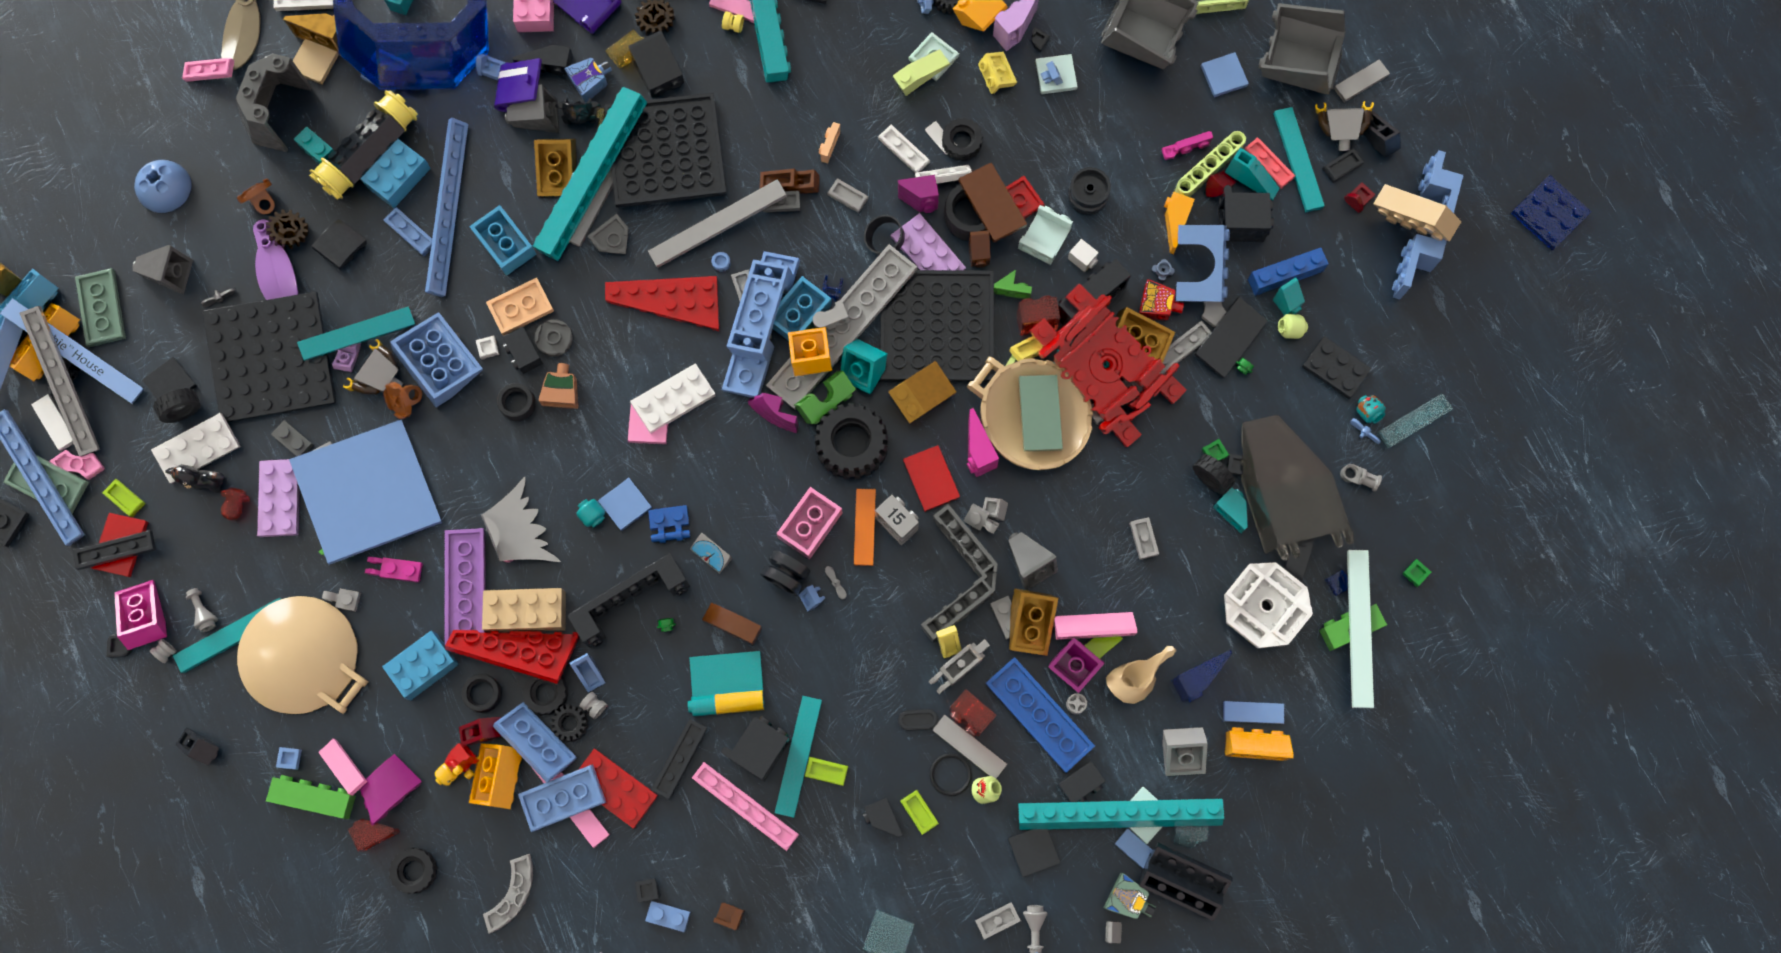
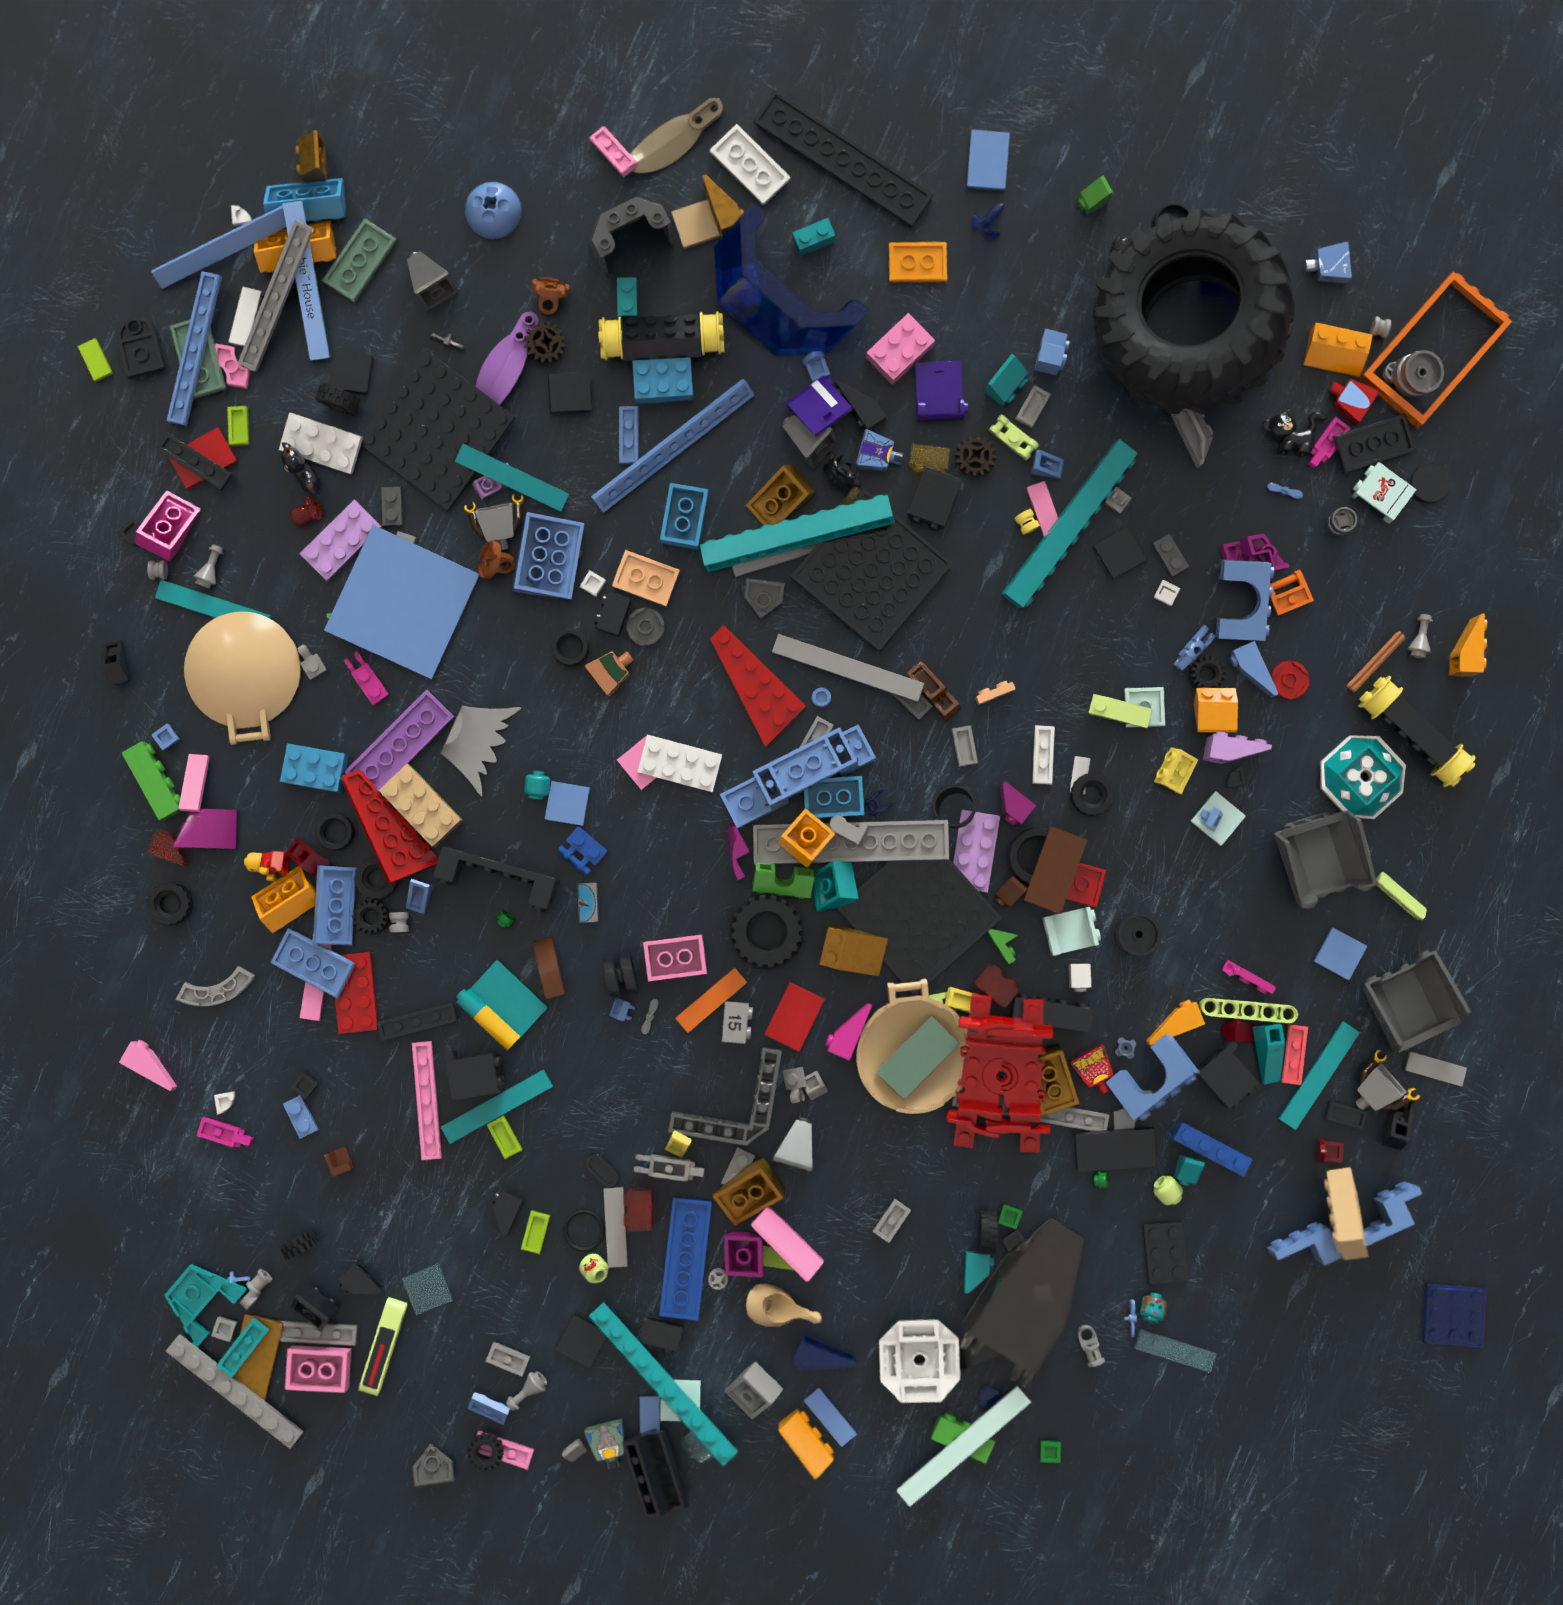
camera: 50 degrees right, 10 degrees up
(947, 174) = (1049, 807): white tile -> none

